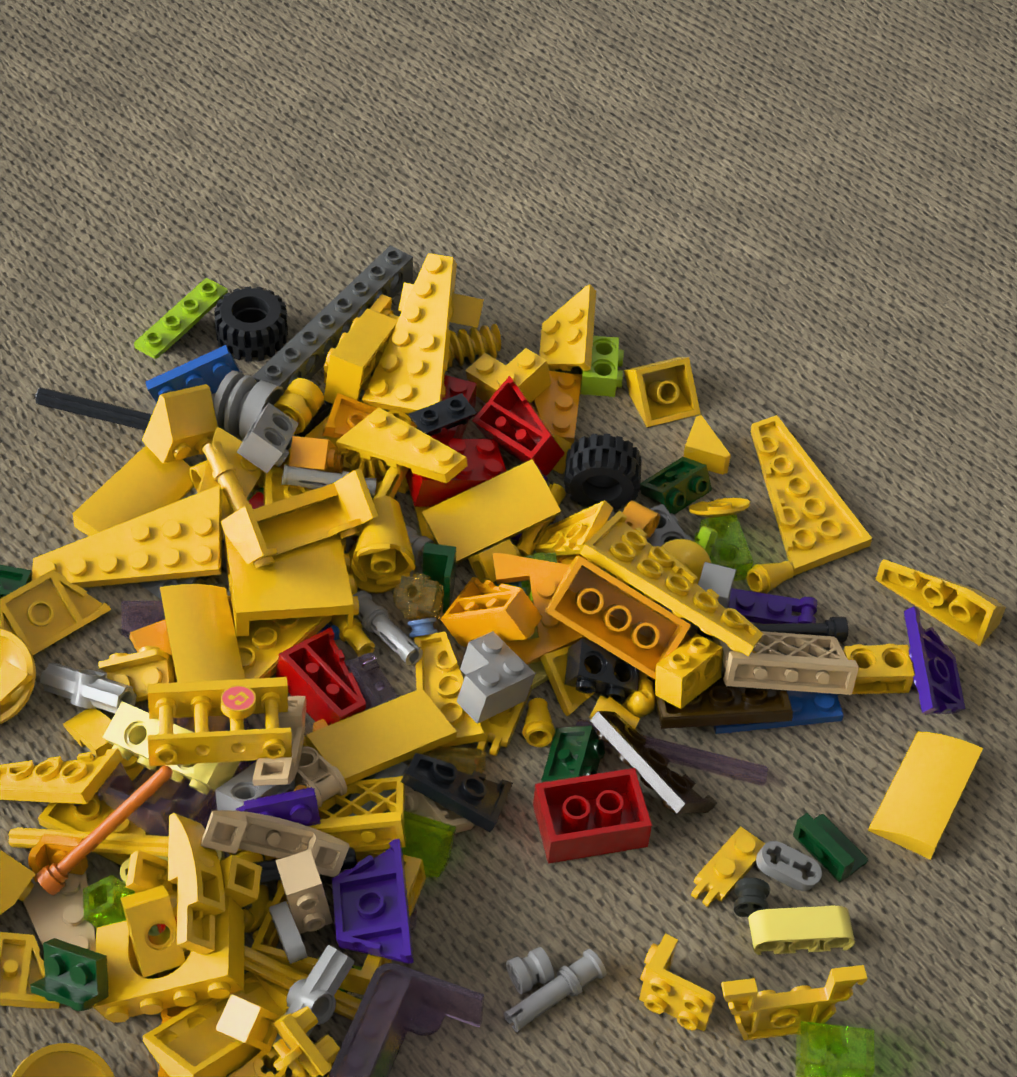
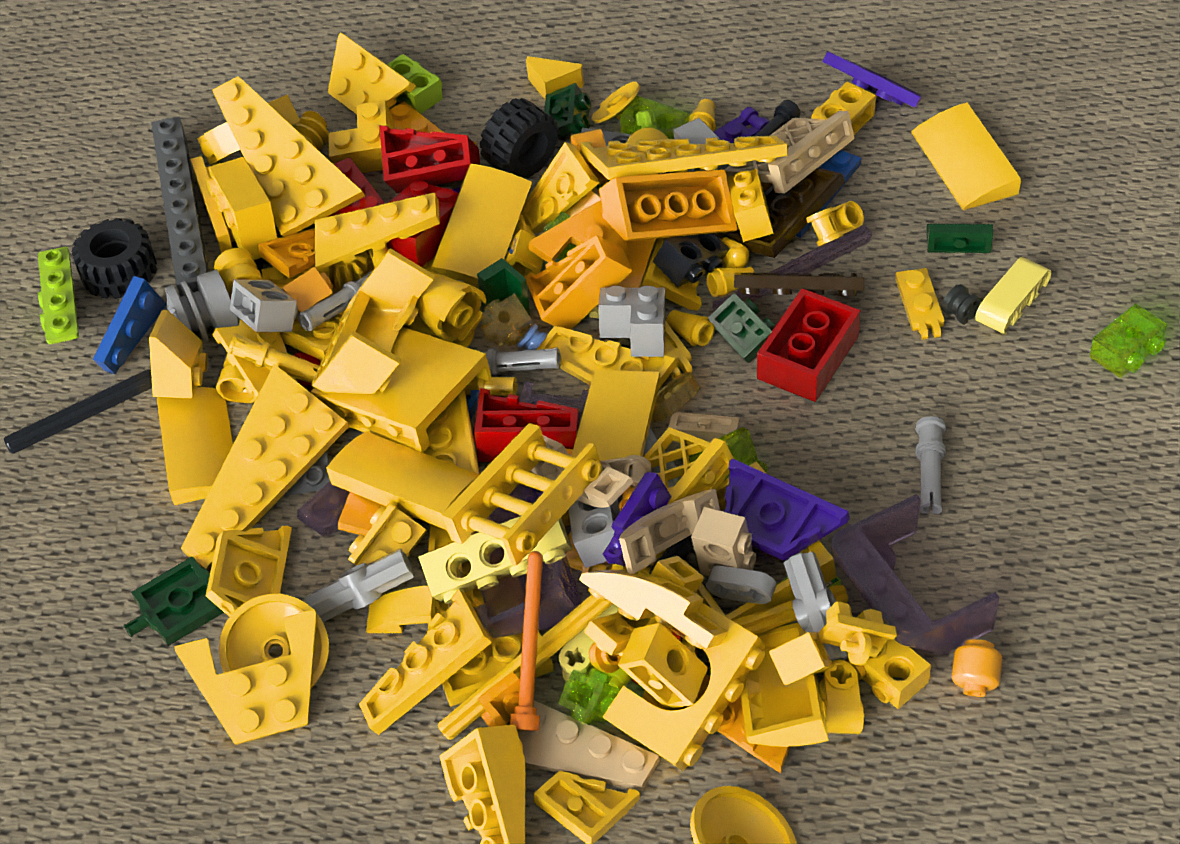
camera: 40 degrees left, 0 degrees up
(72, 975) = (638, 756): dark green bracket -> none
(238, 702) = (525, 464): tile -> none
(443, 414) = (368, 186): black hinge -> none
(460, 792) = (710, 406): black wing -> none
(529, 970) = (901, 467): light grey wheel -> none
(663, 391) = (474, 65): yellow slope -> none
(670, 993) = (999, 395): yellow bracket -> none
(737, 742) = (836, 221): none -> yellow piece
(780, 1014) = (1075, 337): yellow wing -> none
(788, 866) = (955, 267): light grey beam -> none
(808, 510) = (669, 61): yellow wing -> none
(952, 603) = (845, 36): yellow wedge -> none

